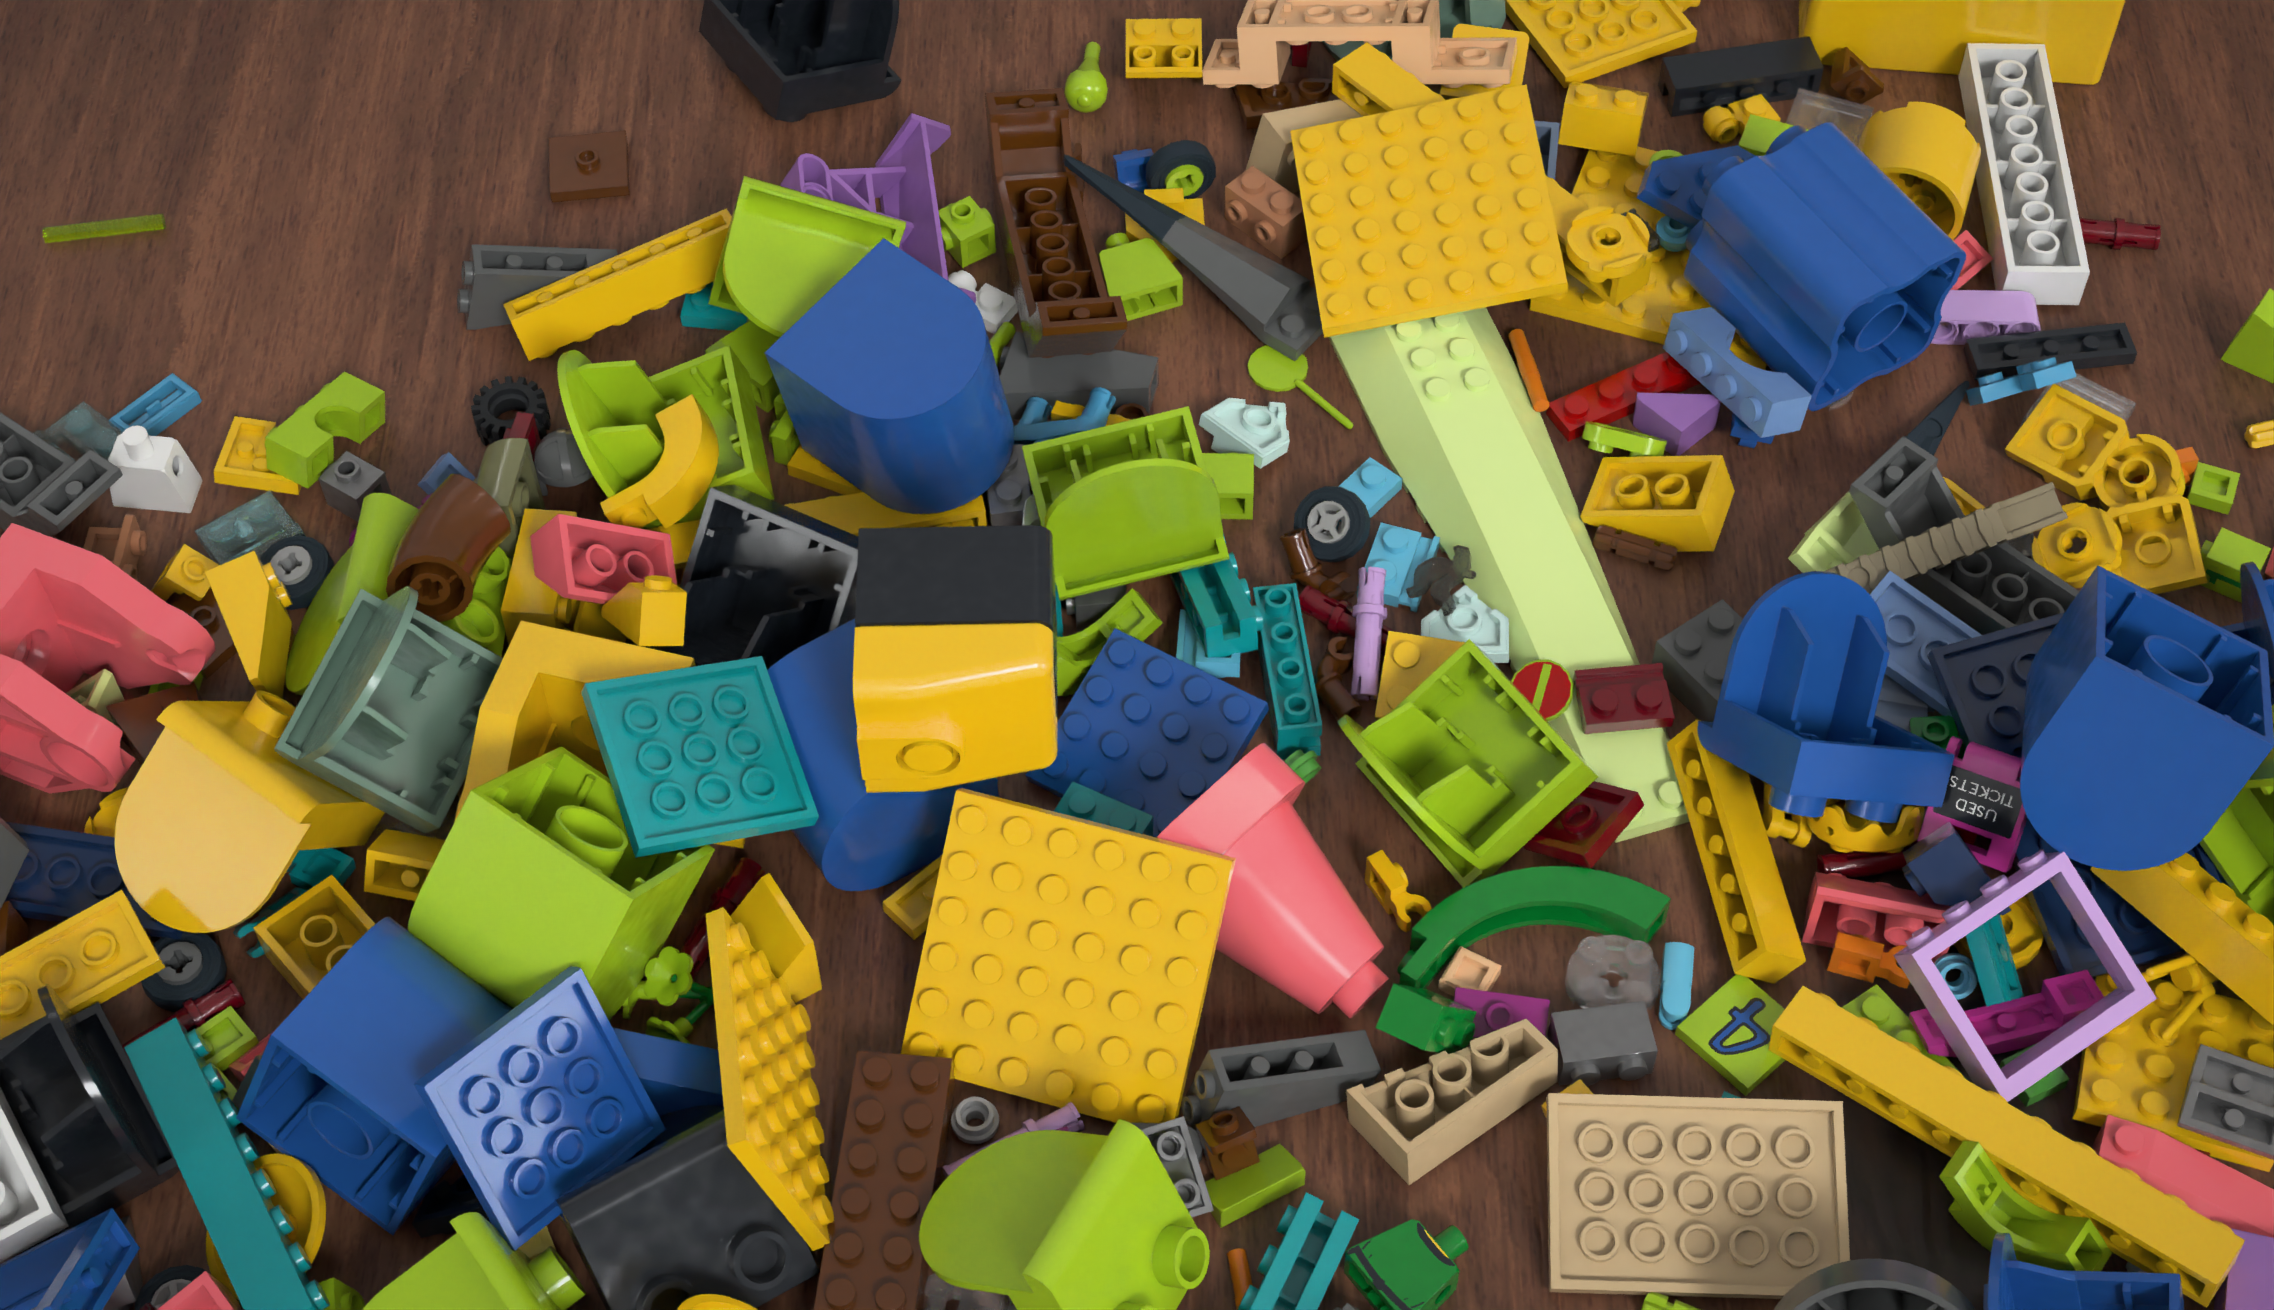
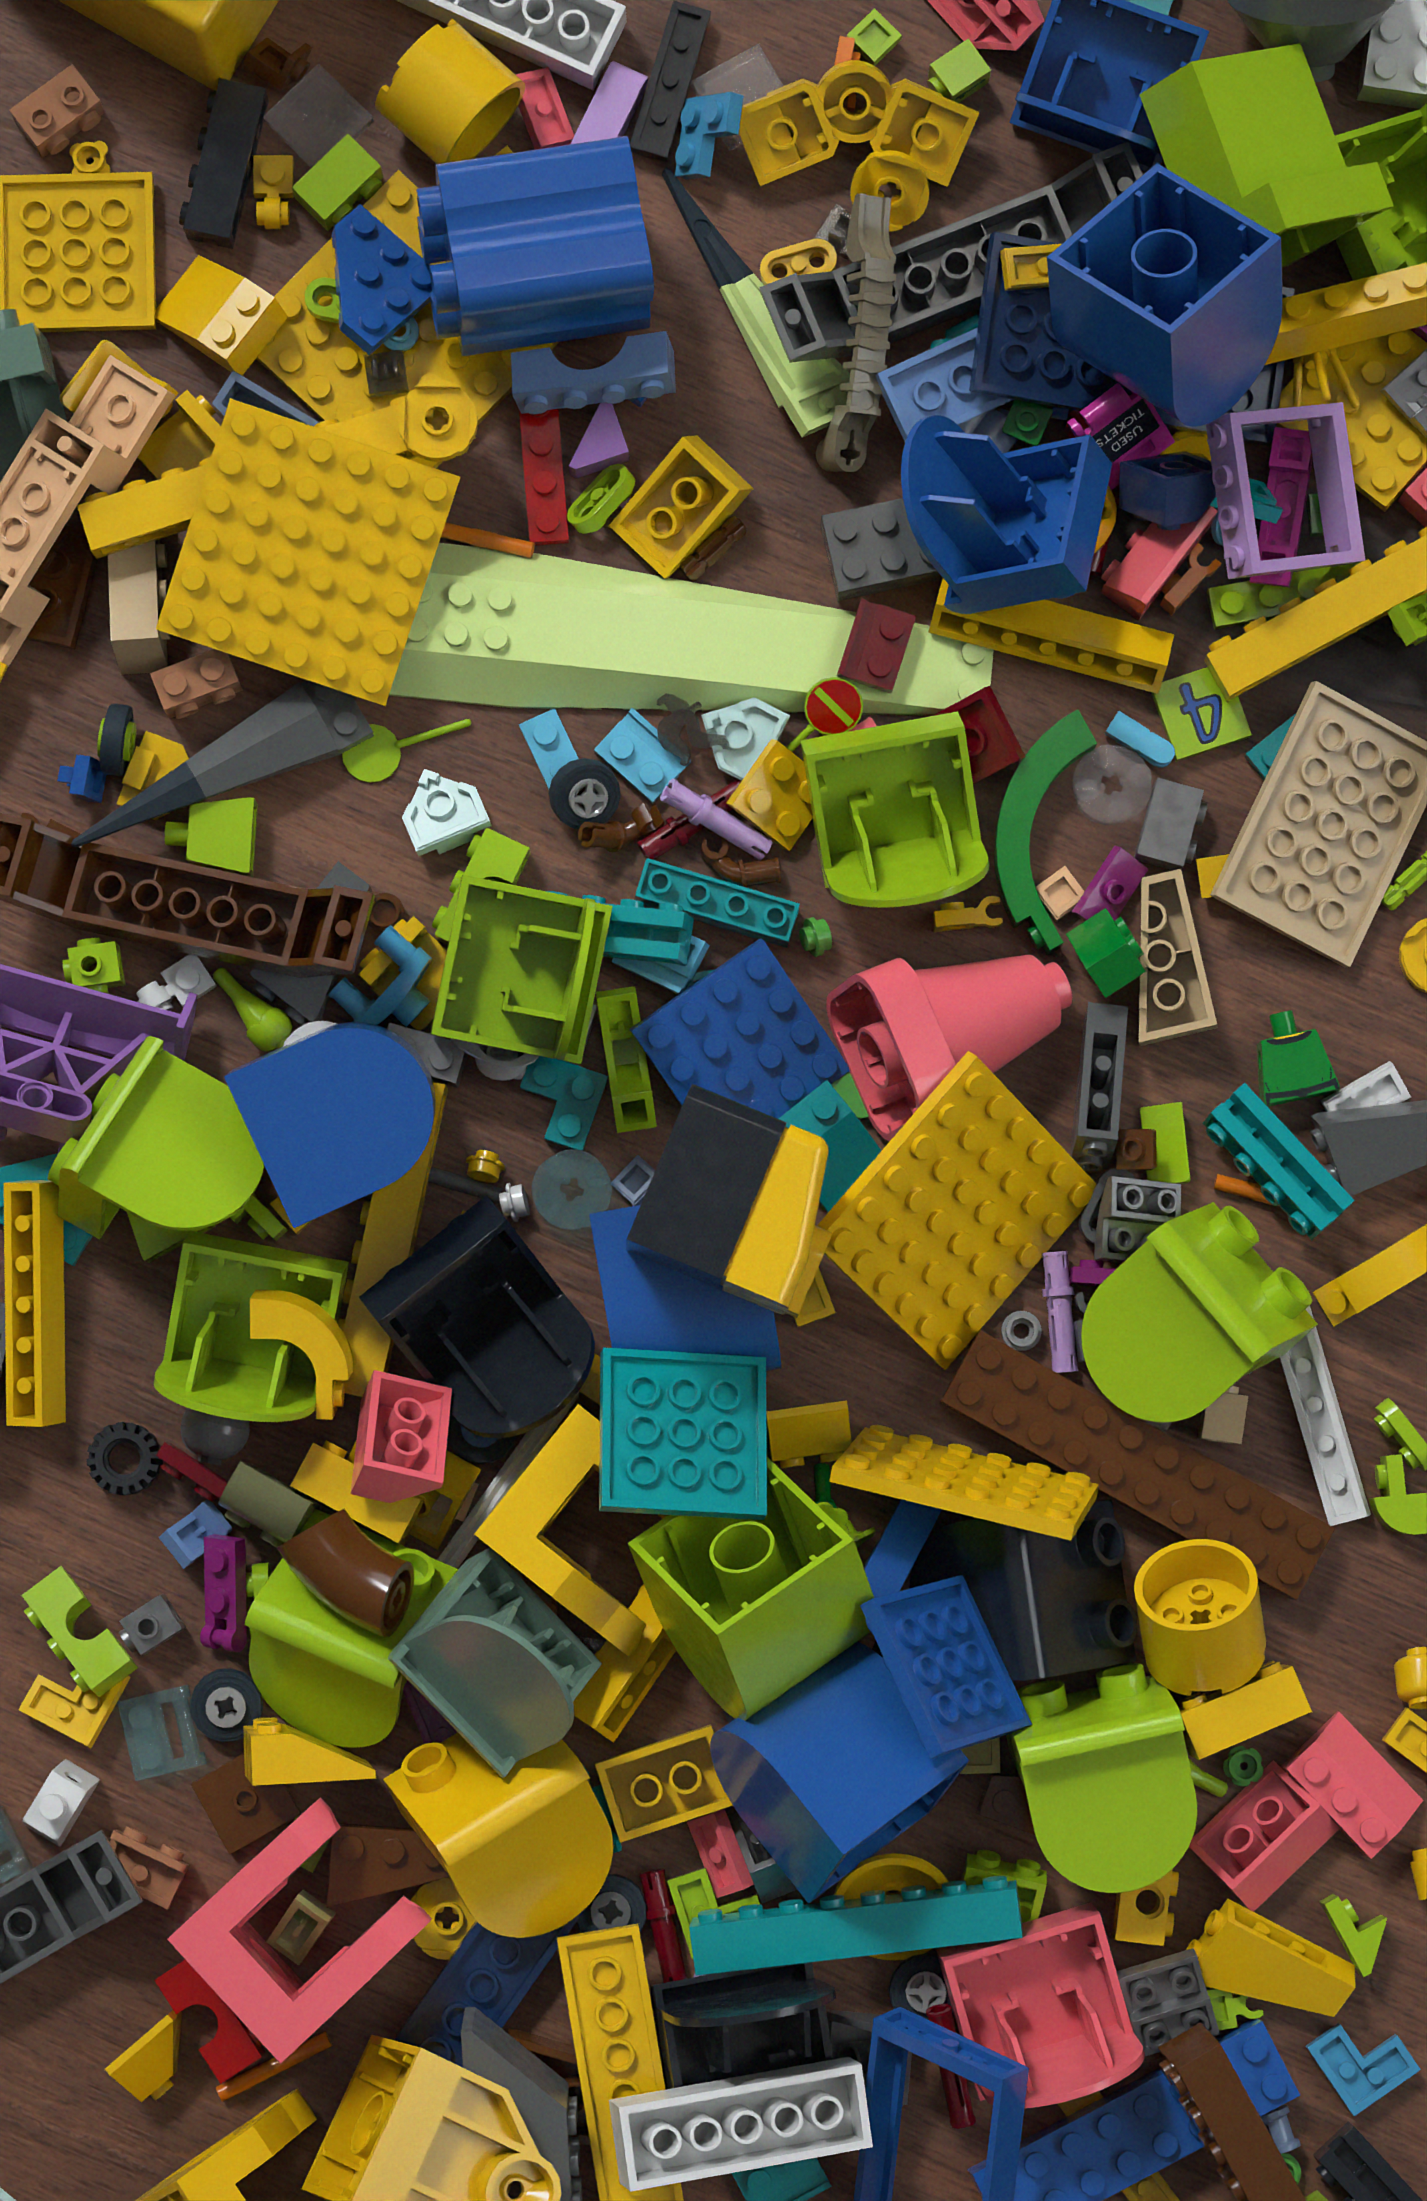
camera: 70 degrees left, 30 degrees up
(184, 575) = (190, 1804): yellow bracket -> none
(649, 612) = (498, 1424): yellow slope -> none

